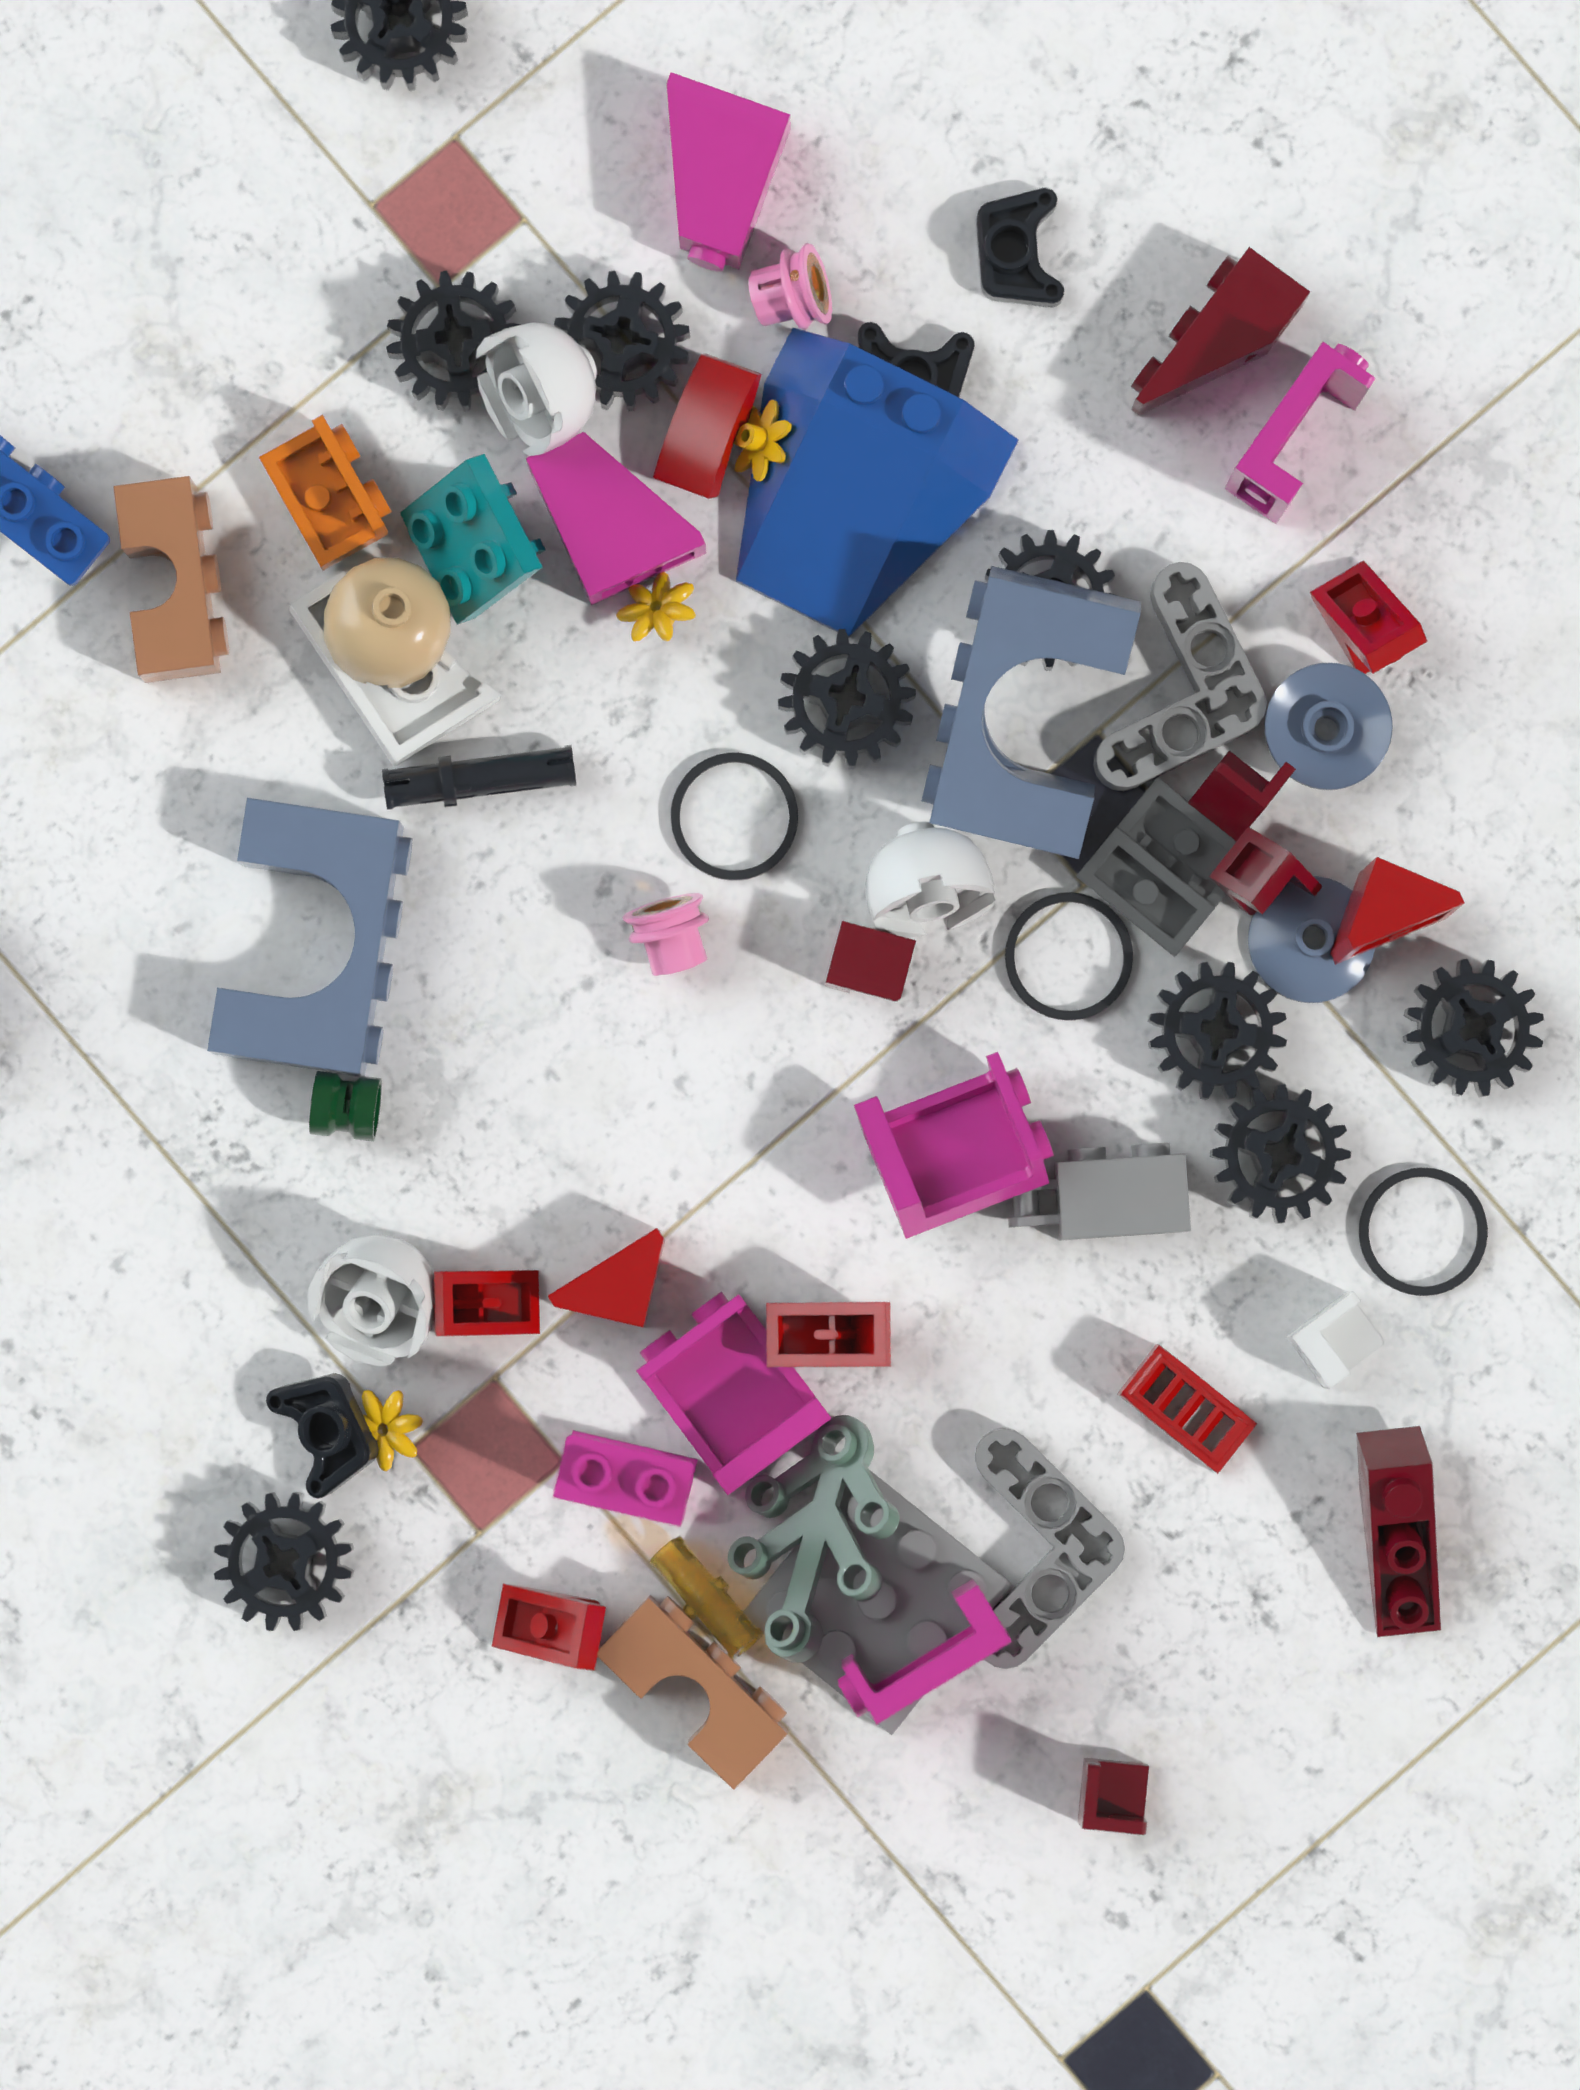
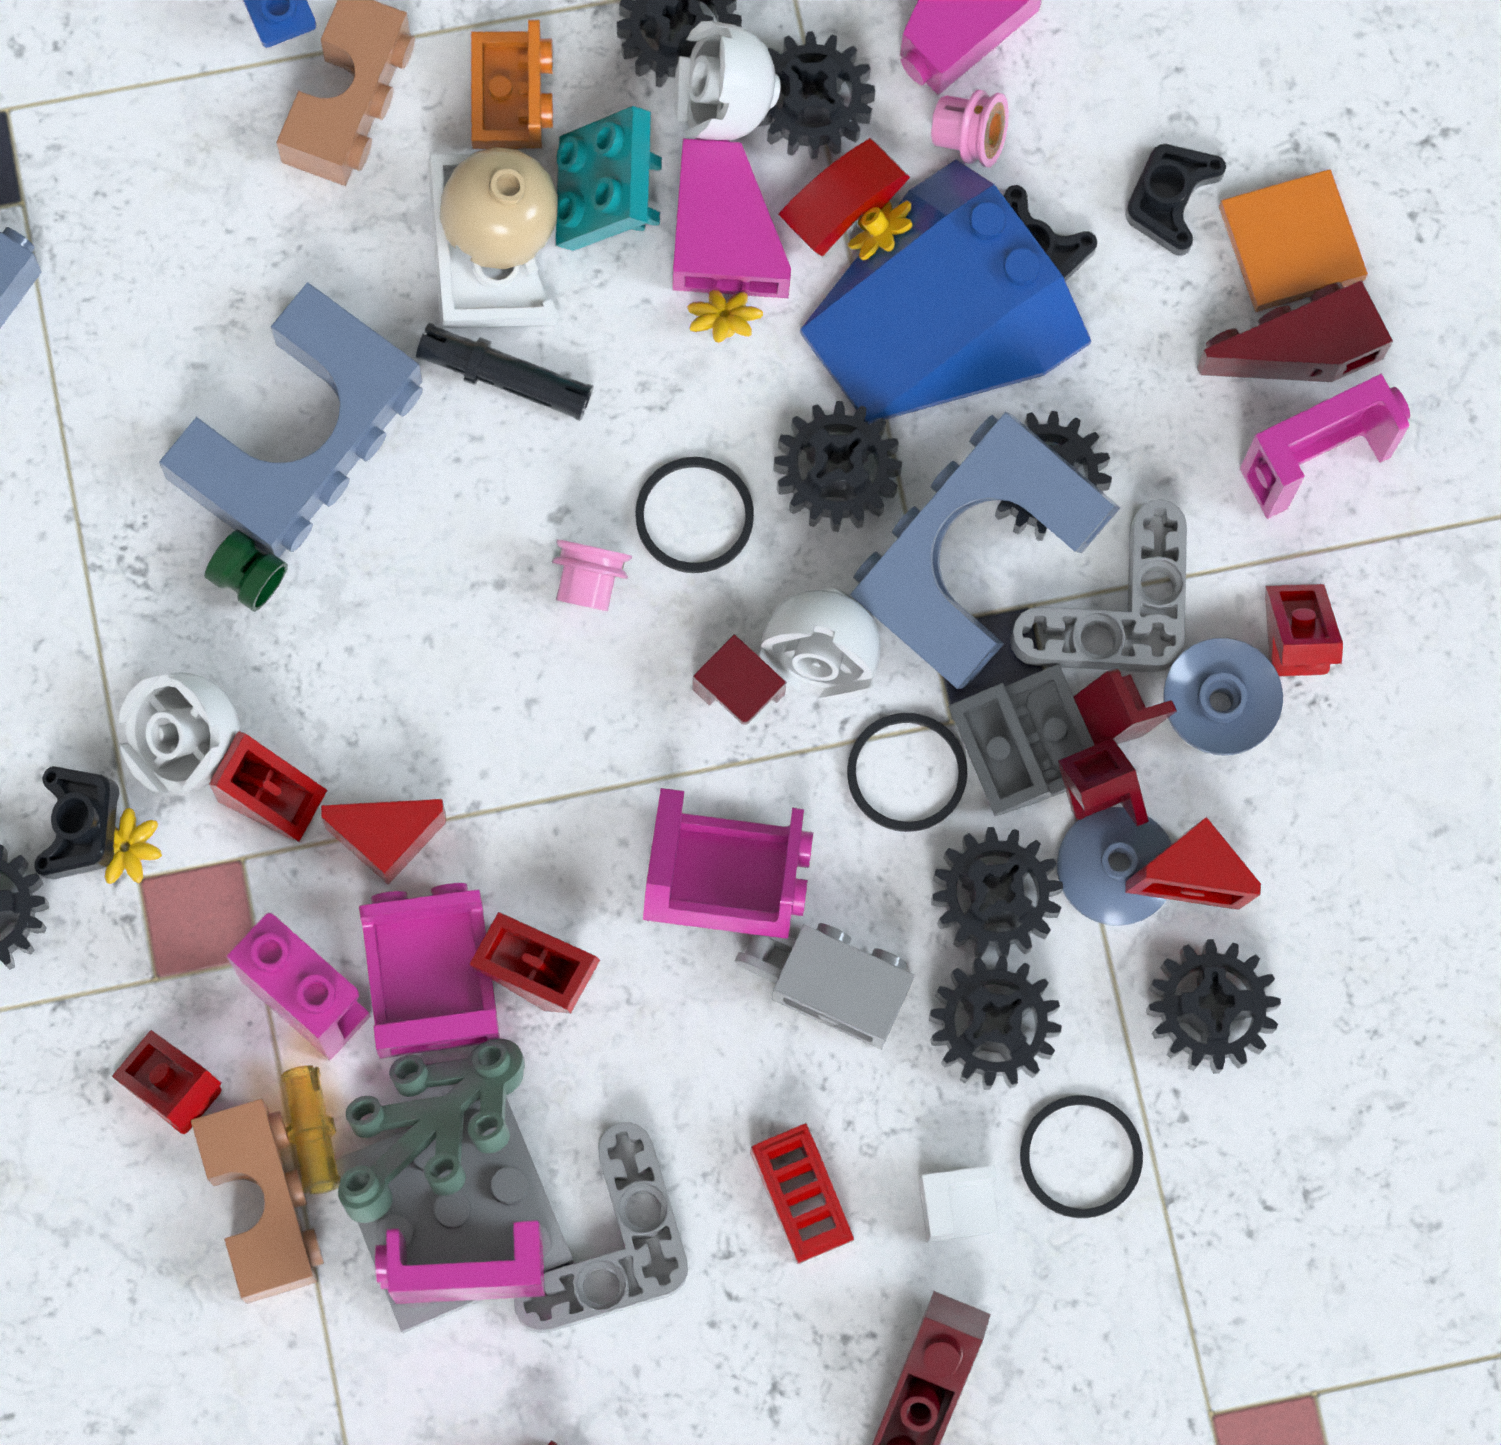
camera: 25 degrees right, 10 degrees down
(1158, 233) = (1292, 240): none -> orange tile

